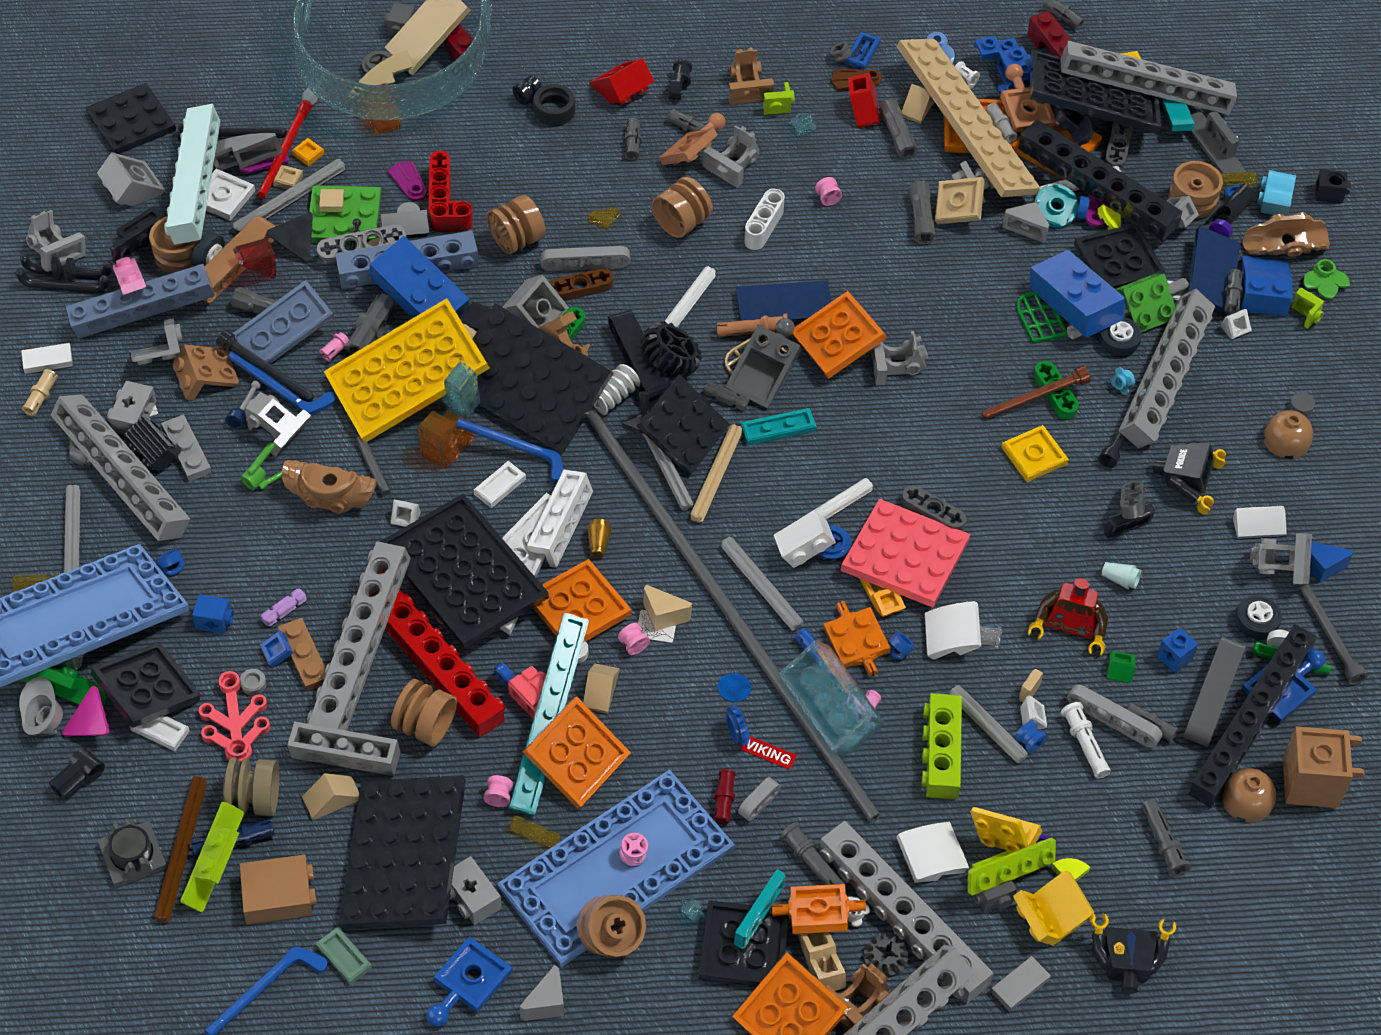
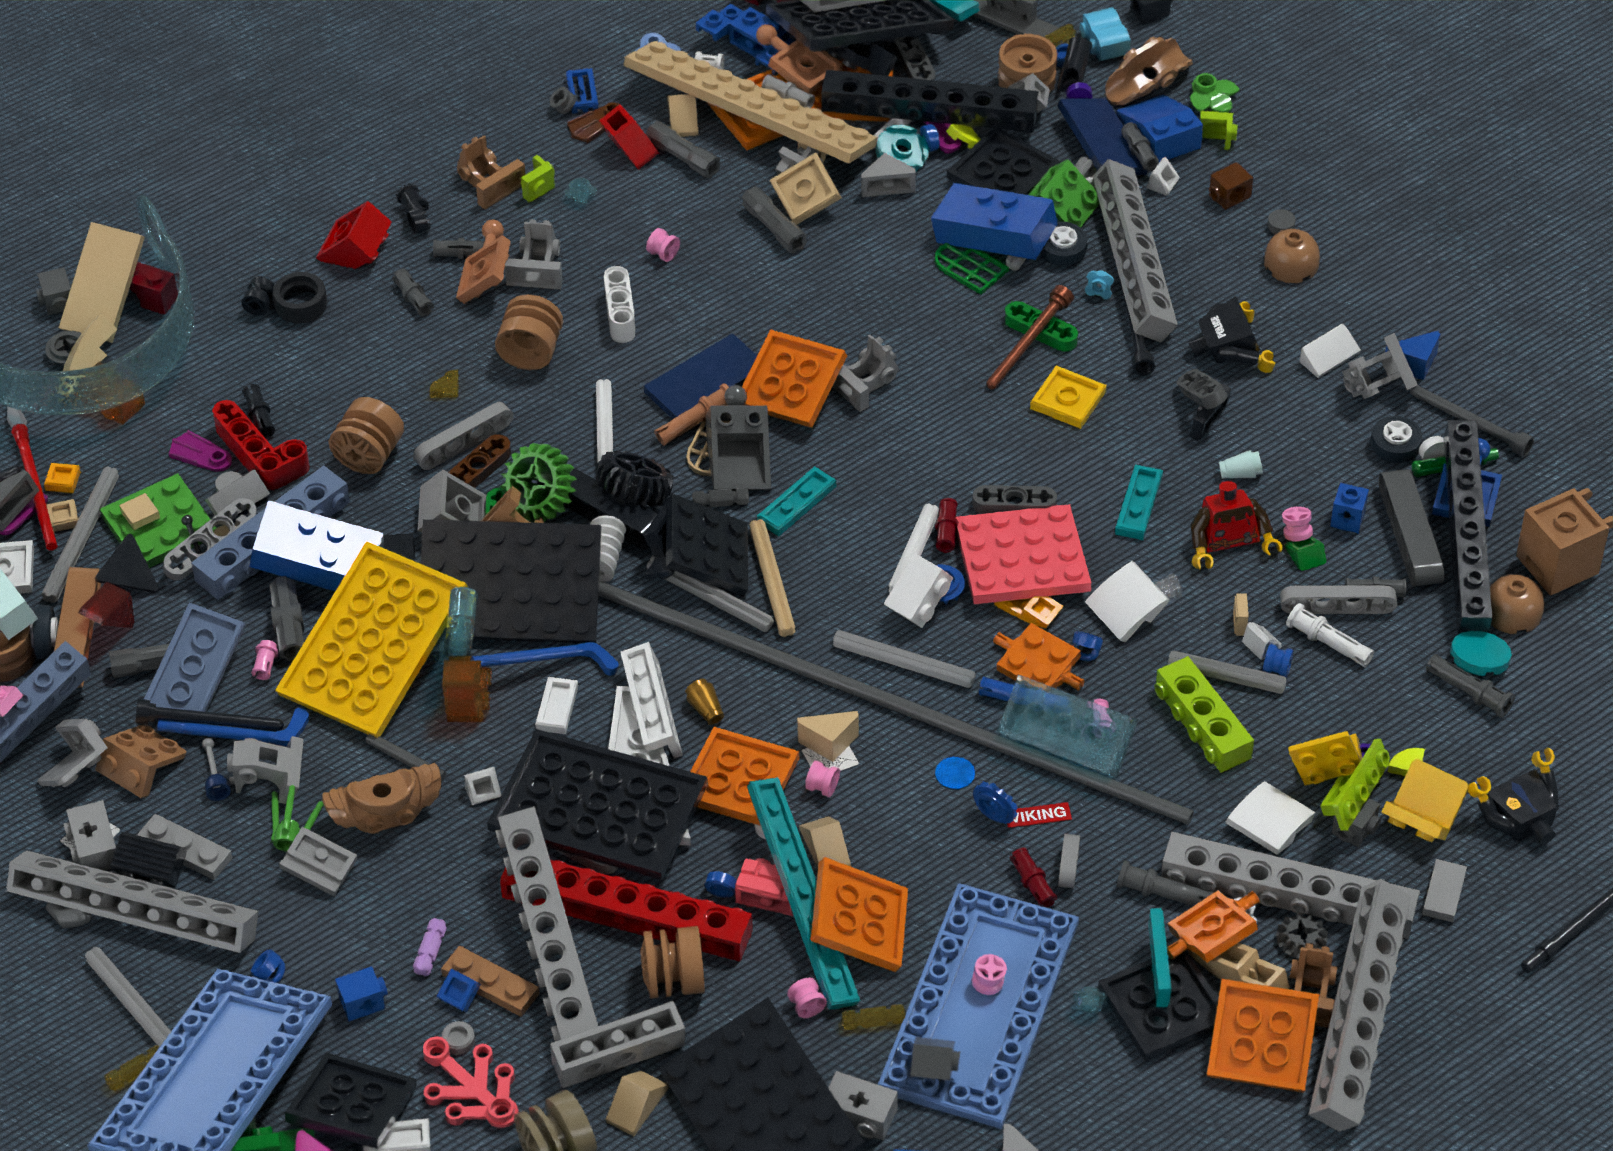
camera: 30 degrees left, 5 degrees down
(257, 506) = (318, 861): none -> light grey plate
(466, 170) = (258, 410): none -> black pin
(542, 887) = (934, 1058): none -> dark grey brick
(602, 318) = (545, 466): none -> bright green gear
(606, 911) = (1030, 1054): medium nougat wheel -> none
(868, 501) = (946, 525): none -> dark red pin
(1025, 560) = (1139, 502): none -> teal tile
(1128, 641) = (1297, 524): none -> bright pink wheel
(1192, 817) = (1480, 653): none -> teal tile
(1282, 356) = (1230, 185): none -> reddish brown brick

